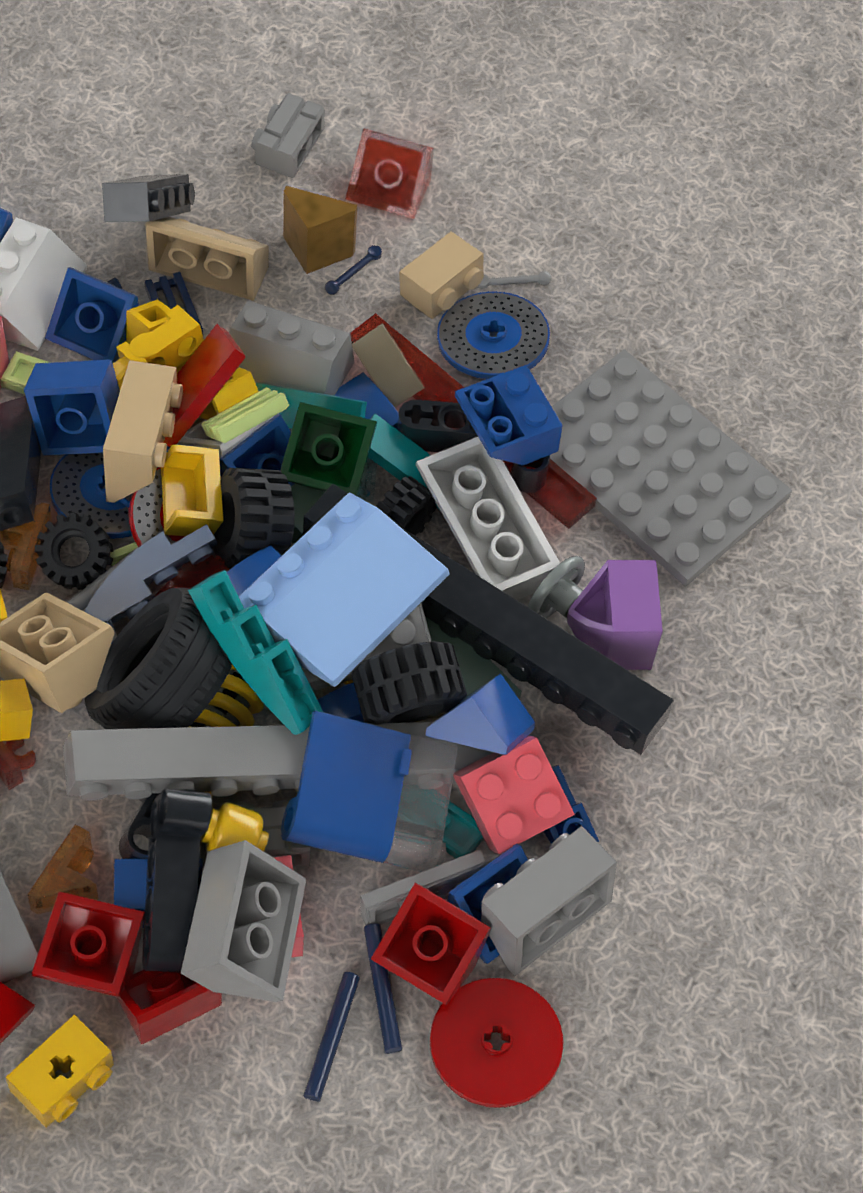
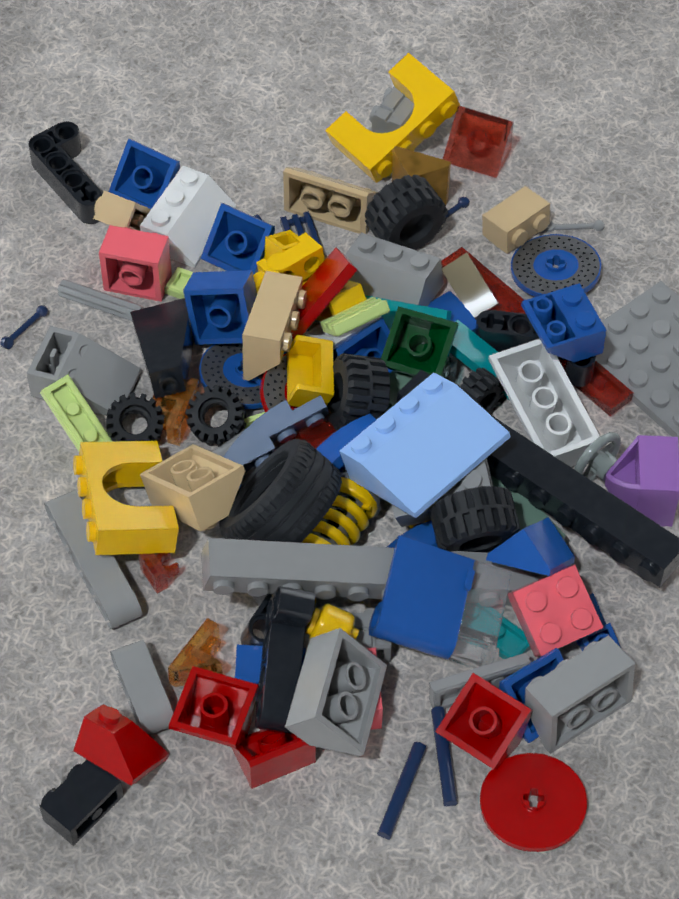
camera: 10 degrees right, 5 degrees down
(67, 1049) = (193, 786): yellow brick -> none
(147, 198) = (285, 151): brick -> none
(265, 665) = (362, 499): teal slope -> none
(304, 273) = (406, 212): none -> black tyre
(330, 130) = (432, 106): none -> yellow arch

